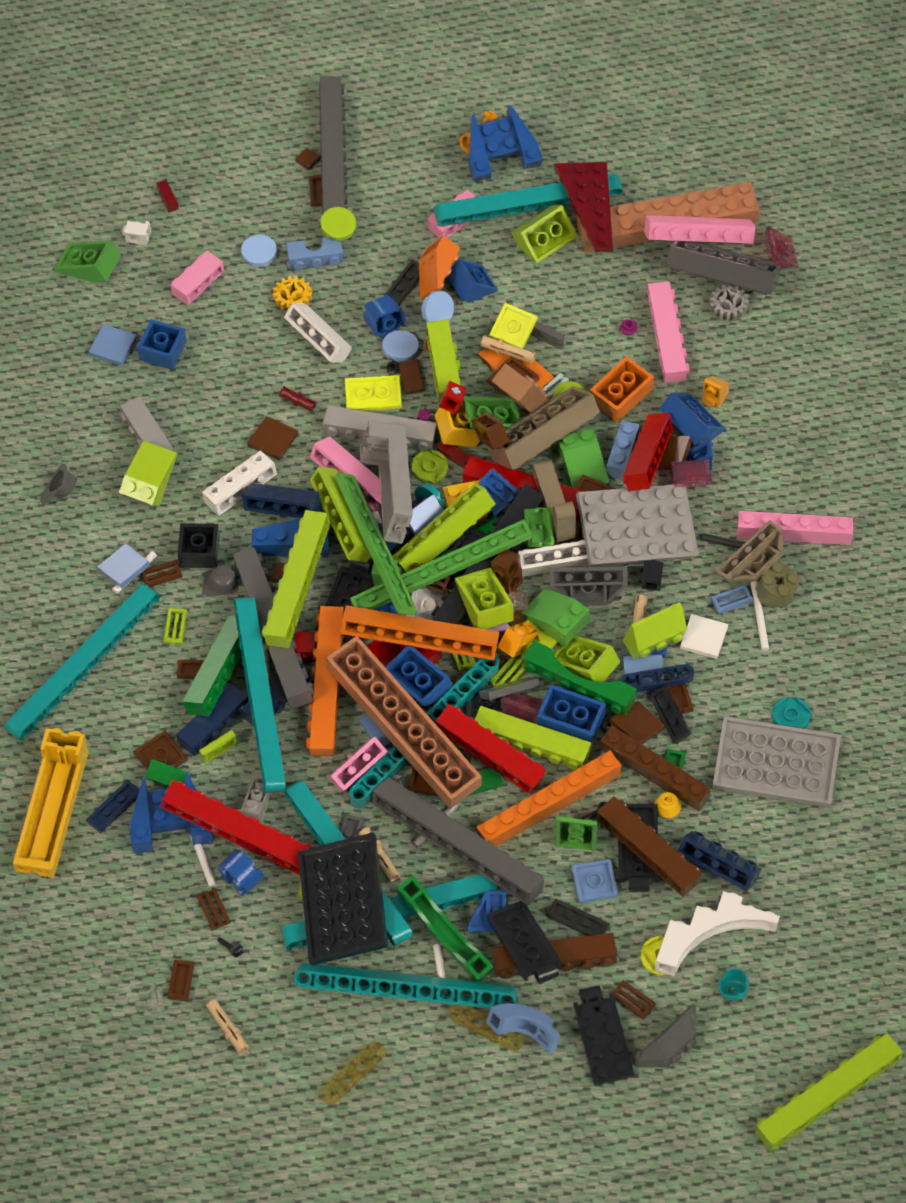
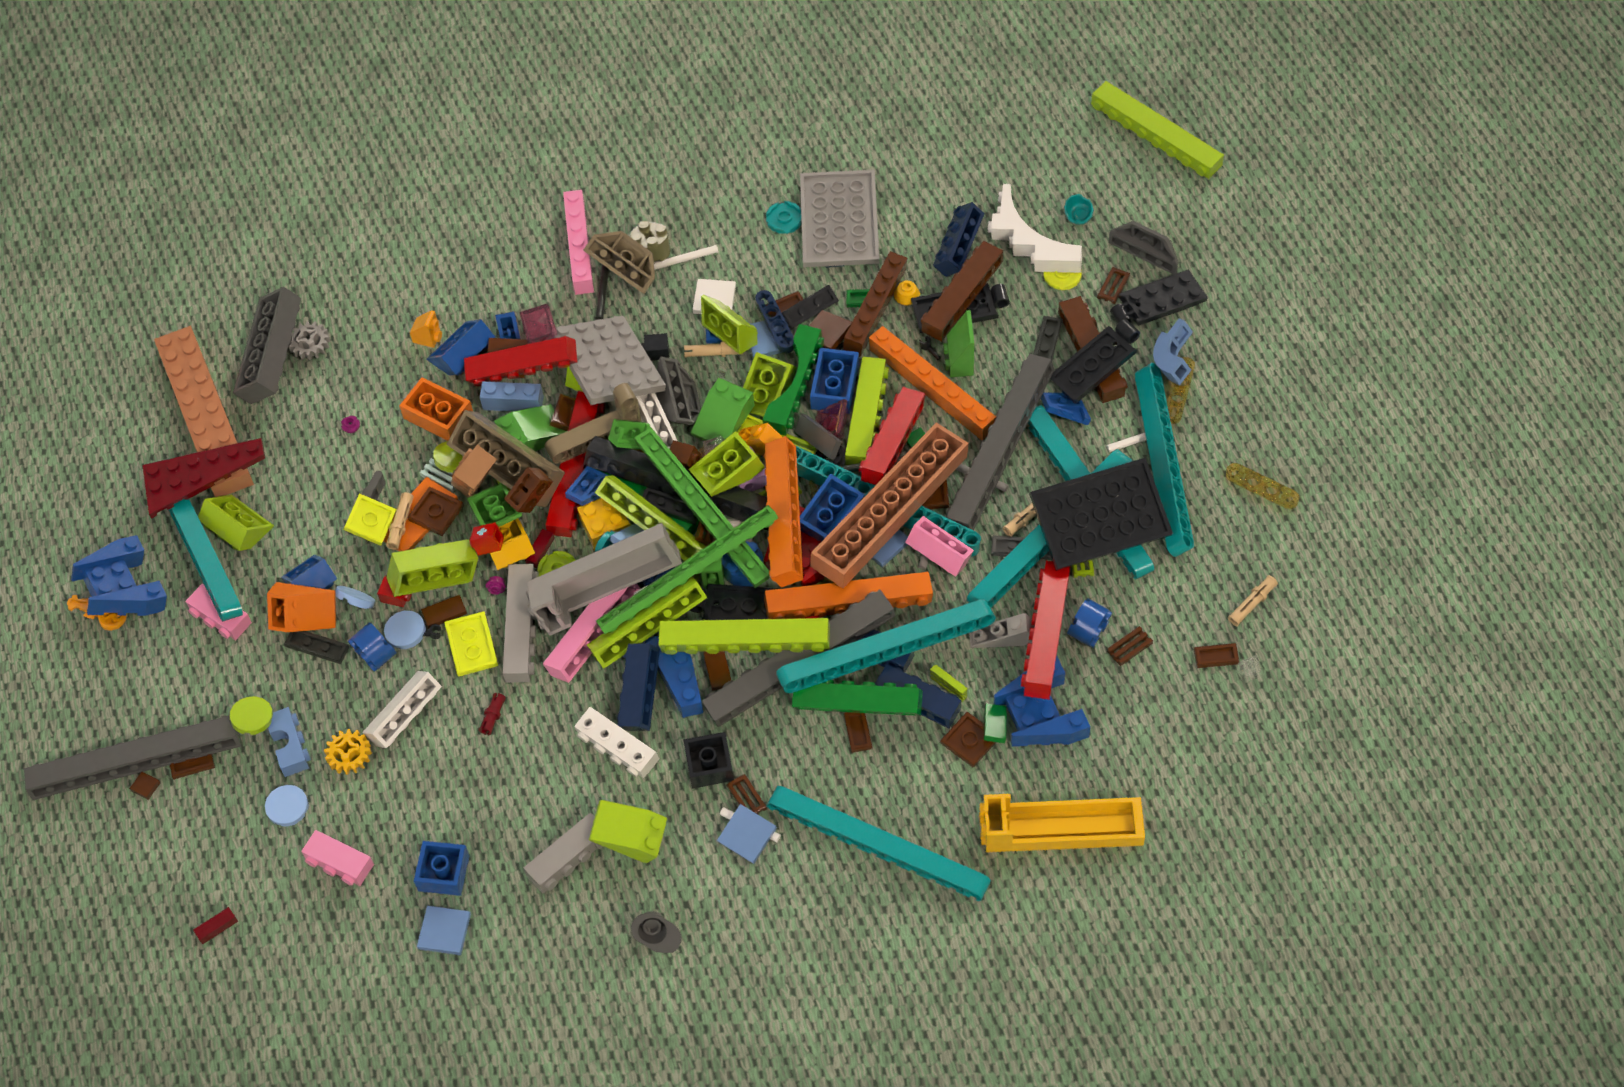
camera: 100 degrees left, 0 degrees up
(89, 260) = (325, 989): bright green slope -> none
(113, 806) = (1041, 768): dark blue tile -> none
(137, 232) = (276, 943): white brick -> none
(174, 640) = (813, 772): lime tile -> none
(205, 865) = (1083, 667): white bar -> none
(220, 581) = (743, 736): dark grey piece -> none
(236, 950) = (1168, 614): black hand -> none
(273, 438) = (547, 728): reddish brown tile -> none
(445, 932) = (1087, 446): green arch -> none
(594, 881) = (1002, 336): medium blue tile -> none
(667, 333) = (354, 387): bright pink brick -> none
(699, 229) = (223, 372): bright pink brick -> none
(718, 606) = (675, 293): medium blue tile -> none
(780, 249) = (236, 311): clear pink slope -> none

